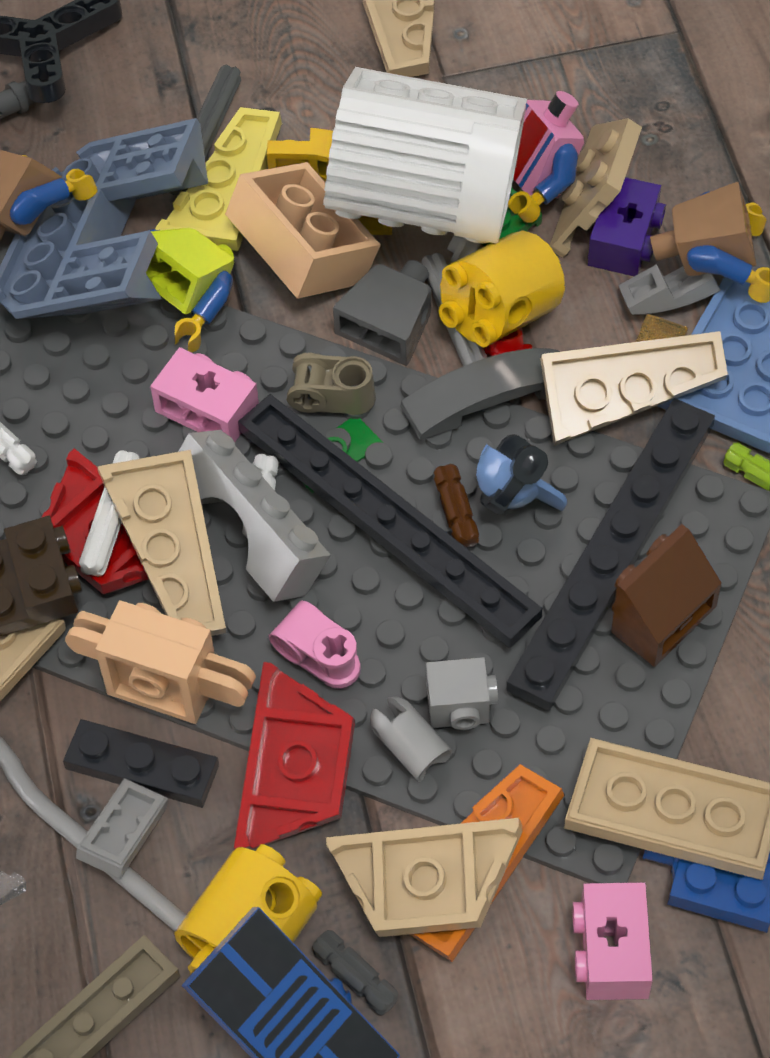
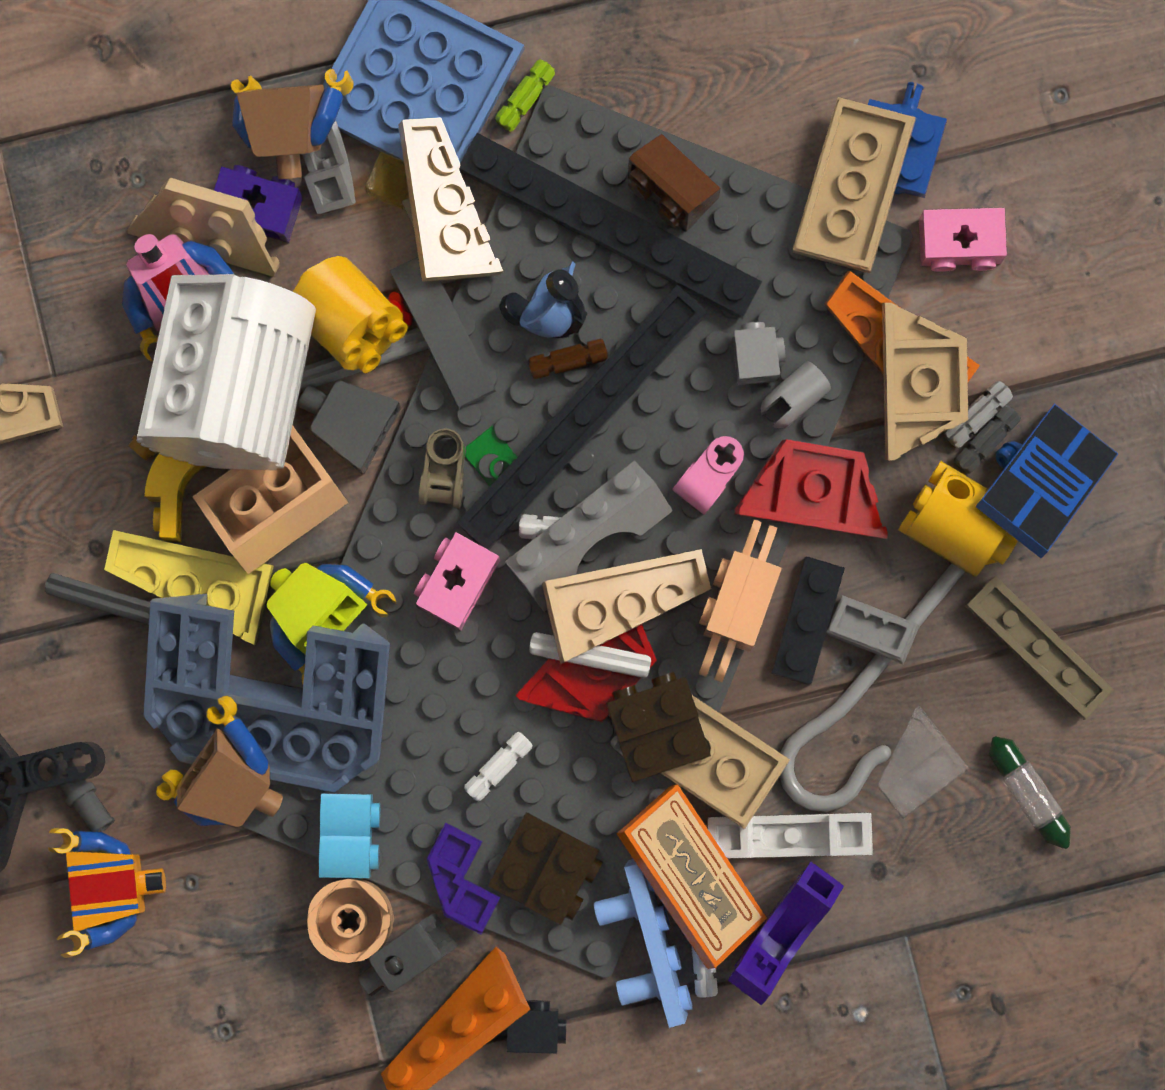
camera: 90 degrees left, 25 degrees up
(388, 961) = (980, 413): none -> light grey axle

